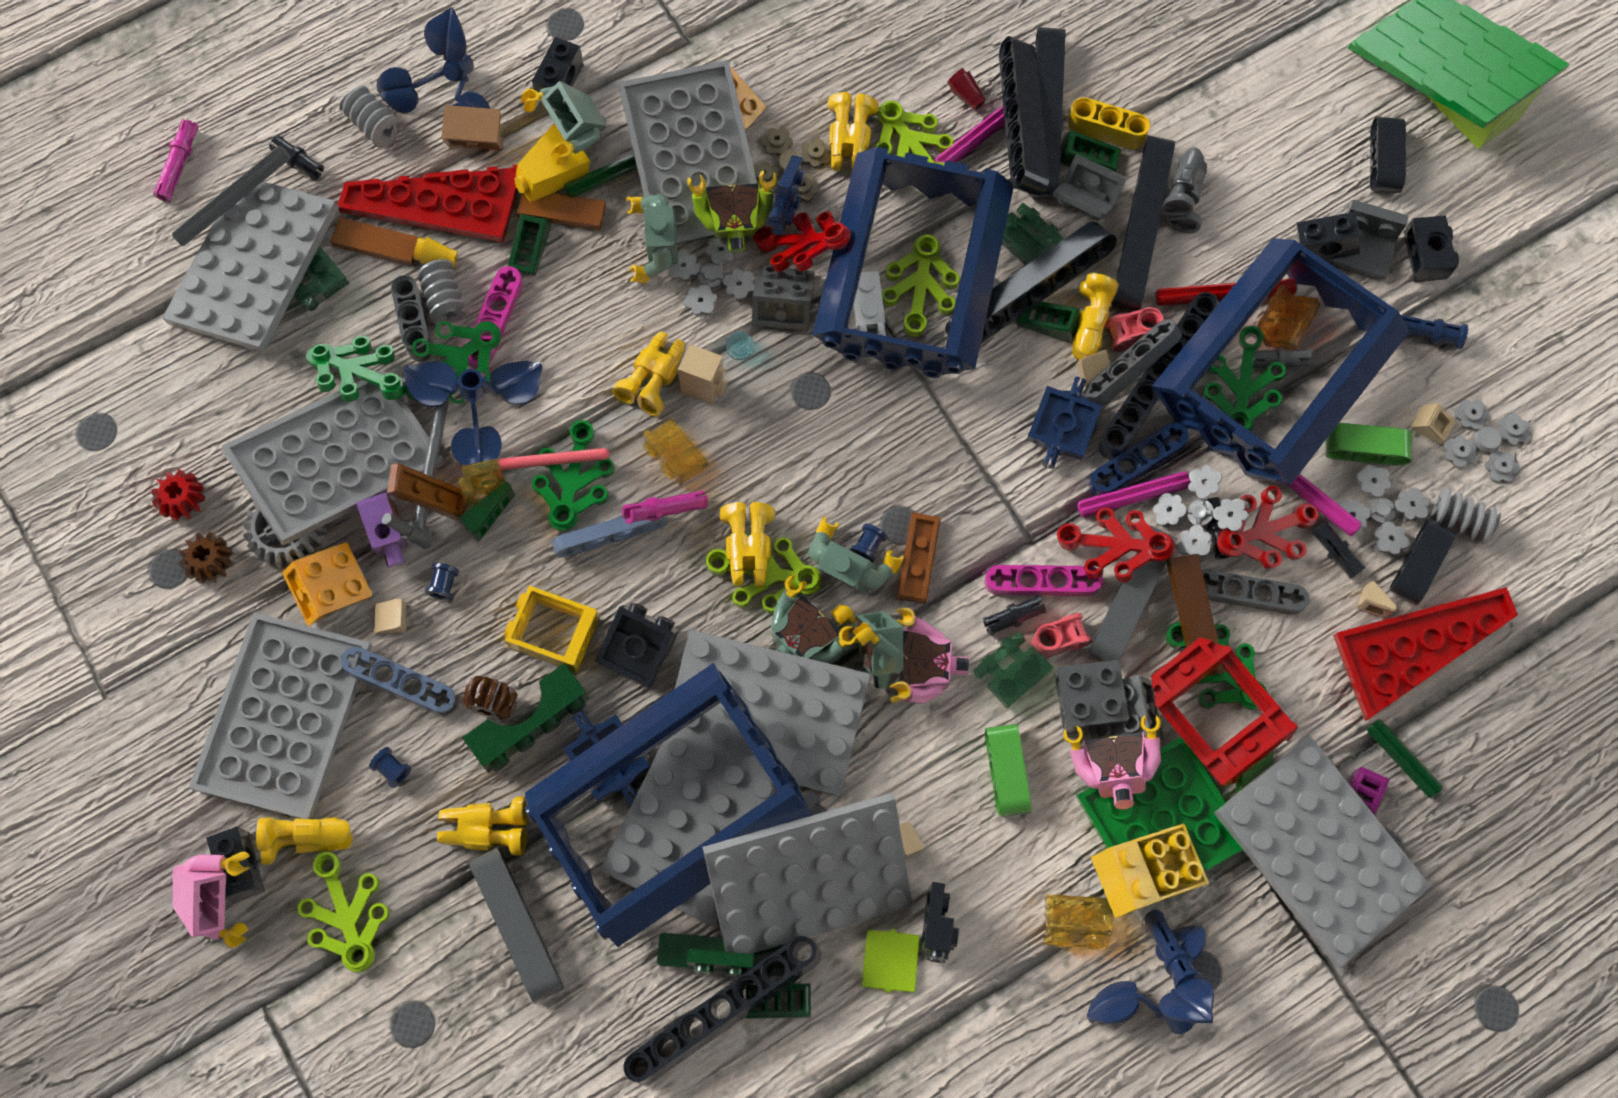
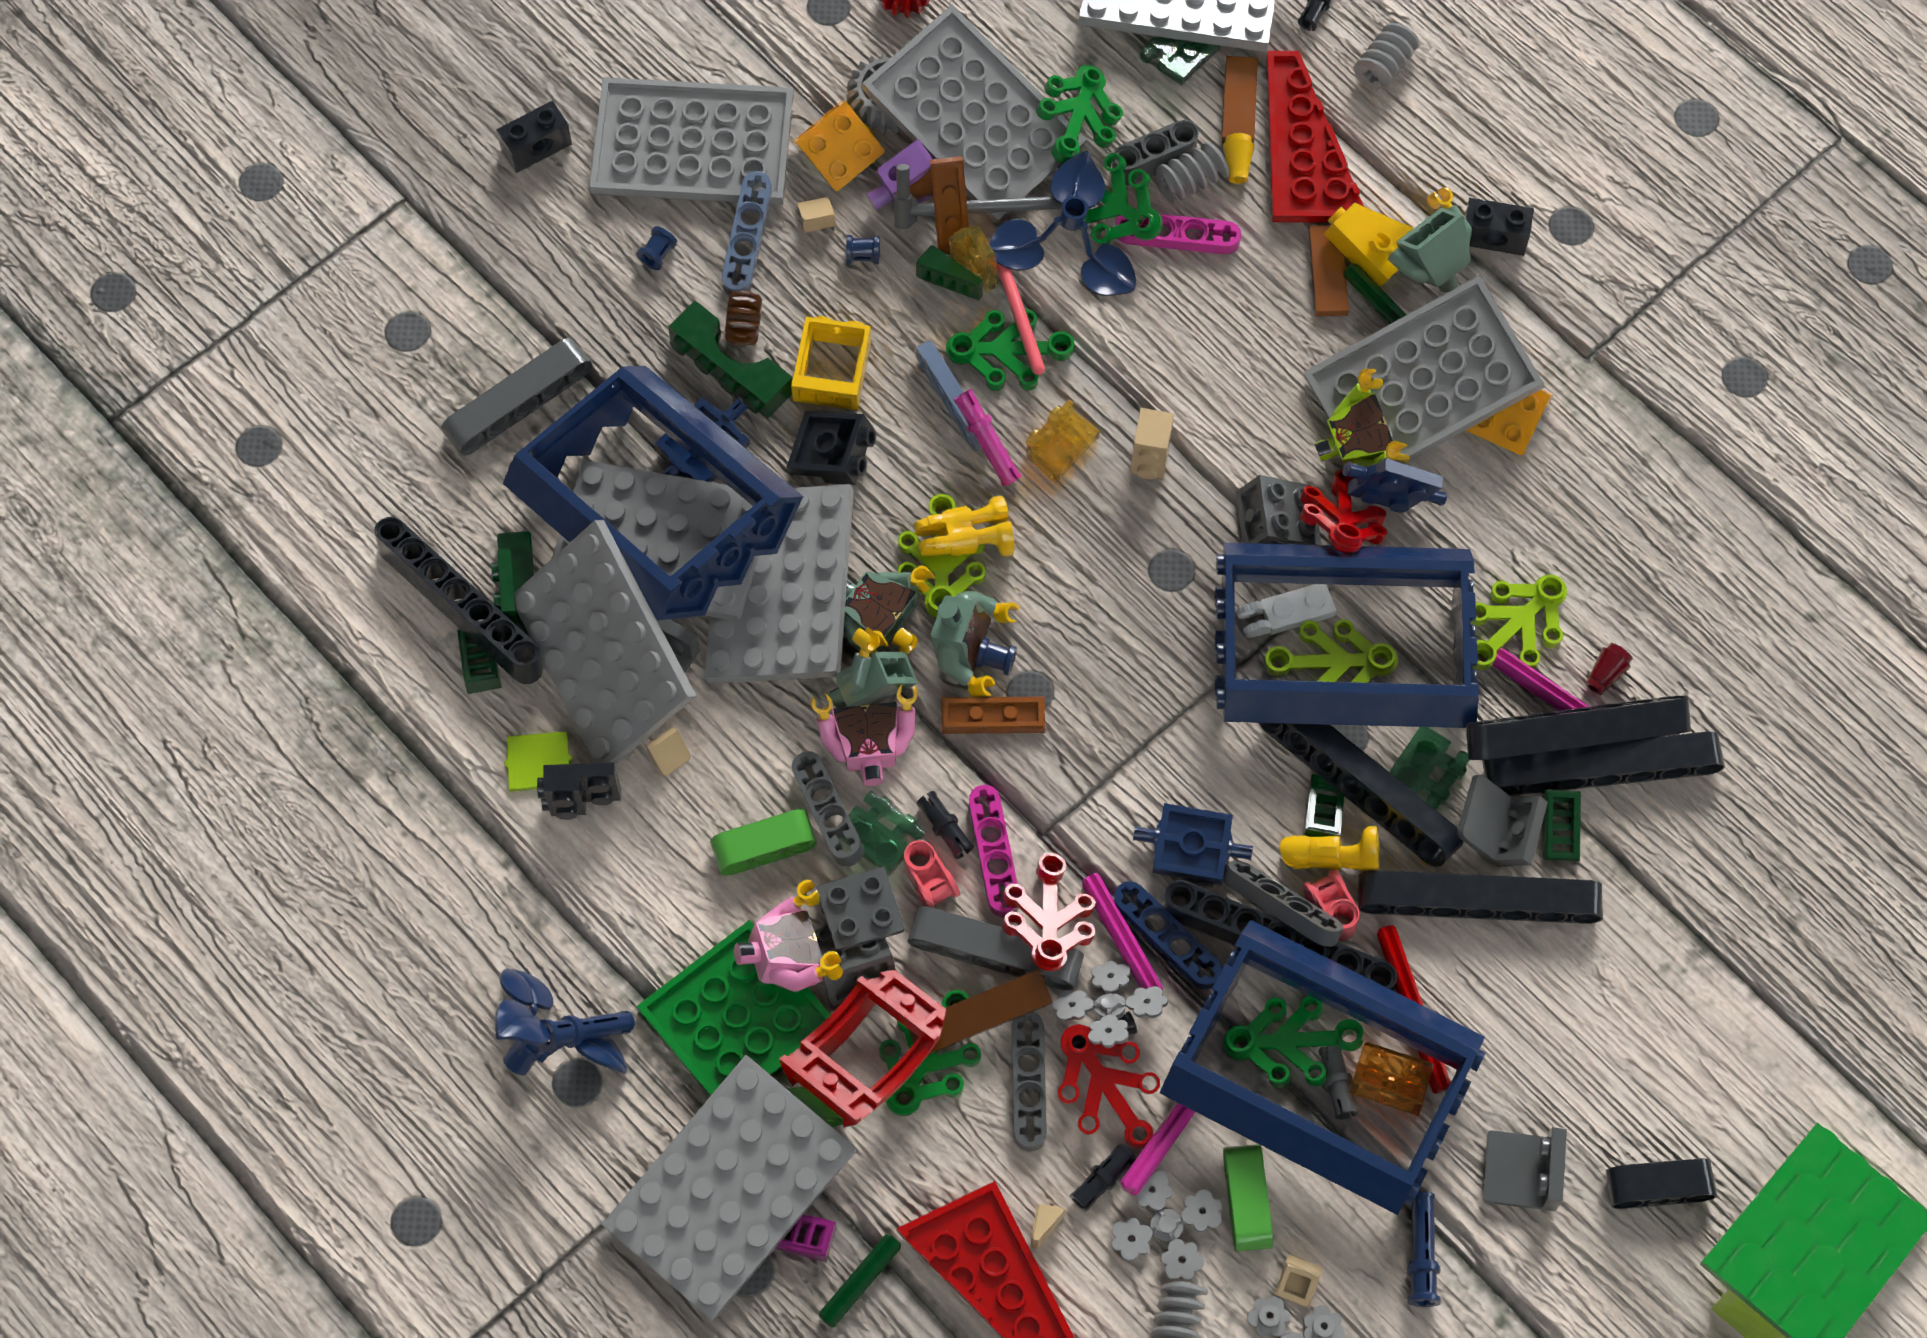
camera: 80 degrees right, 5 degrees down
(196, 552) = (842, 32): reddish brown gear -> none
(201, 896) = (492, 113): bright pink torso -> none
(306, 834) = (565, 158): yellow piece -> none
(345, 916) = (503, 245): lime plant -> none
(446, 38) = (1469, 122): dark blue plant -> none
(472, 127) = (1398, 154): medium nougat panel -> none
(475, 826) = (606, 339): yellow piece -> none
(541, 239) = (1286, 257): dark green slope -> none
(652, 364) = (1158, 396): yellow piece -> none
(659, 235) = (1311, 362): sand green torso -> none
(711, 277) = (1284, 437): light grey plant -> none
(739, 346) = (1205, 483): clear light blue plate -> none
(778, 142) = (1457, 497): dark tan plant -> none
(849, 139) = (1501, 548): yellow piece -> none
(989, 712) = (829, 807): none -> dark grey beam
(1077, 921) = (608, 938): clear yellow bracket -> none
(1092, 366) = (1272, 864): tan slope -> none
(1122, 122) = (1611, 822): yellow beam -> none
(1149, 870) = (675, 1002): yellow slope -> none
(1186, 192) = (1546, 938): dark grey piece -> none
(1331, 235) = (1511, 1113): black brick -> none
(1422, 561) = (1108, 1276): black beam -> none
(1424, 261) = (1553, 1234): black brick -> none

